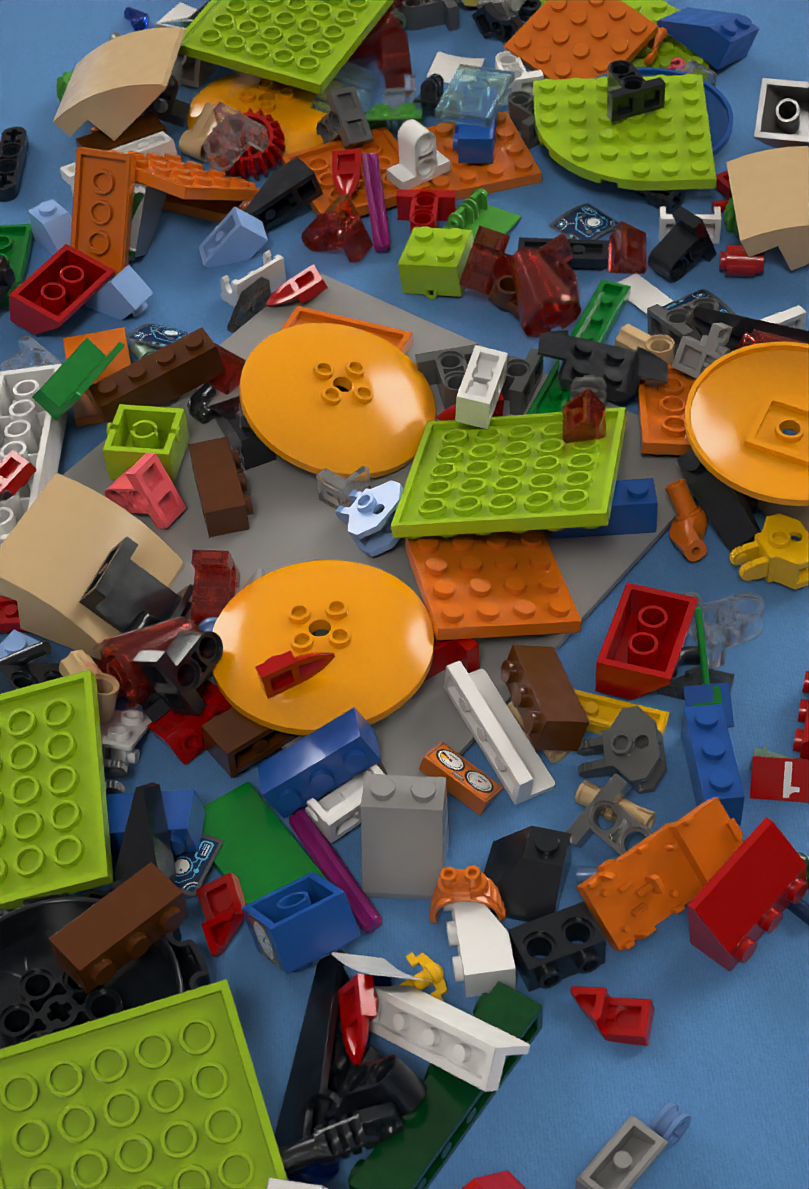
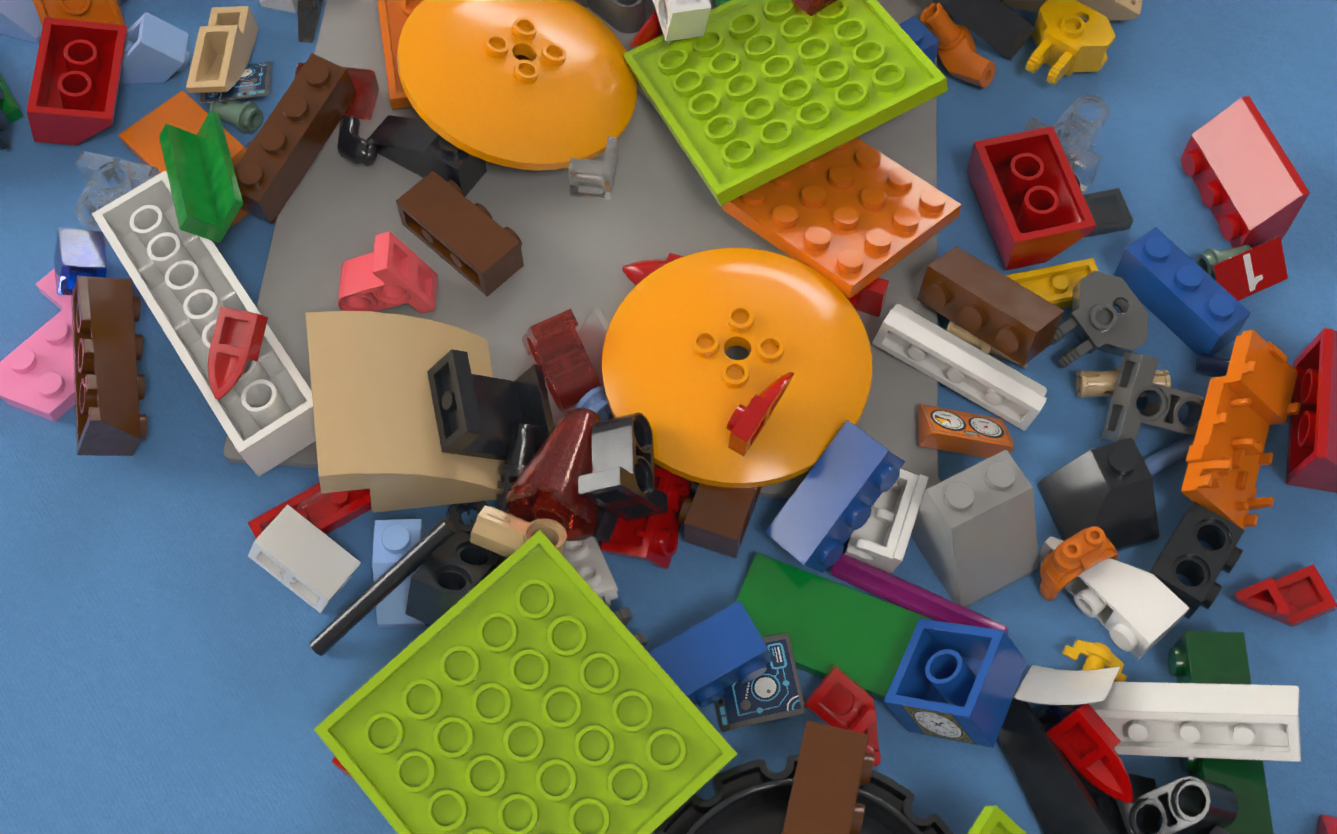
camera: 35 degrees left, 15 degrees up
(143, 431) = (339, 216): lime brick -> none
(145, 837) = (747, 708): black slope -> none
(166, 311) = (222, 49): none -> tan slope
(371, 517) = (663, 188): light blue hinge -> none
(708, 693) = (1118, 226): piece -> none

